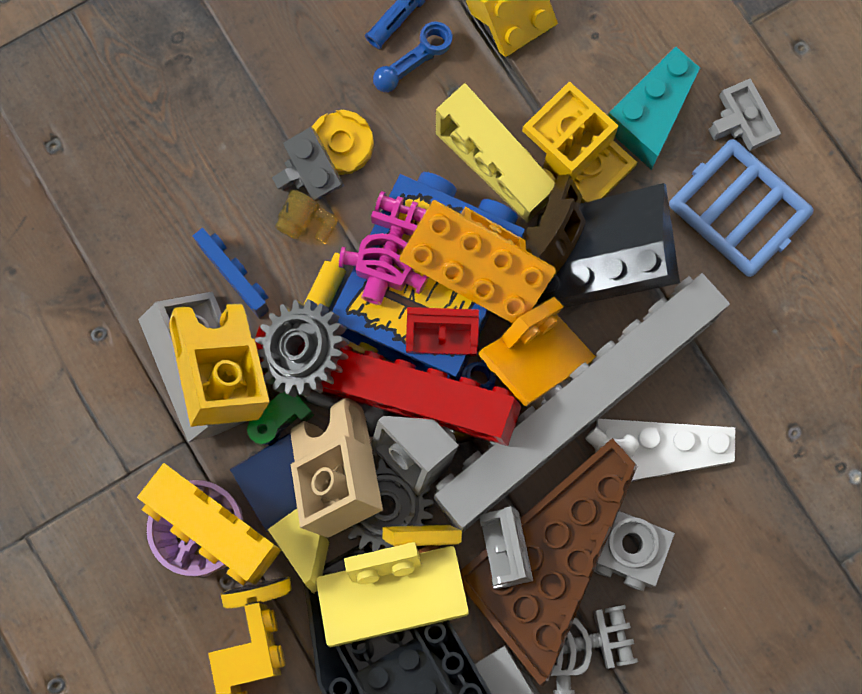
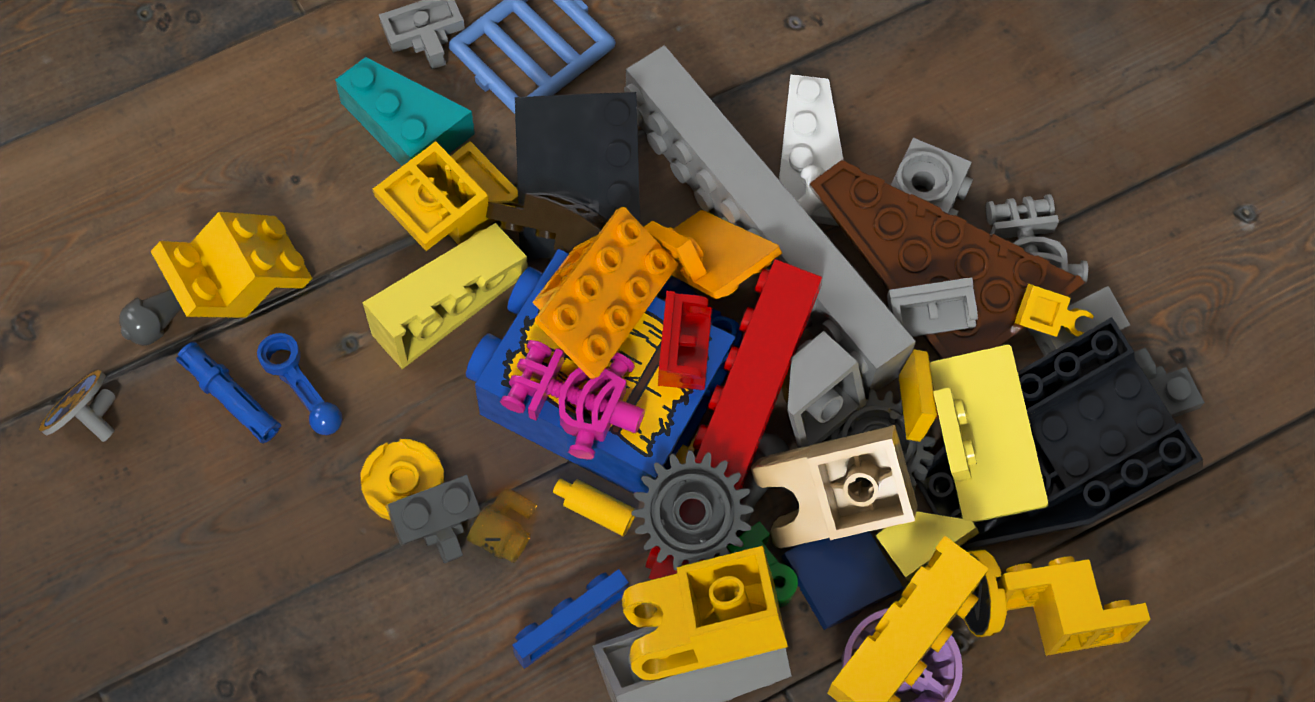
camera: 90 degrees left, 10 degrees down
(508, 650) = (1048, 312): none -> yellow plate

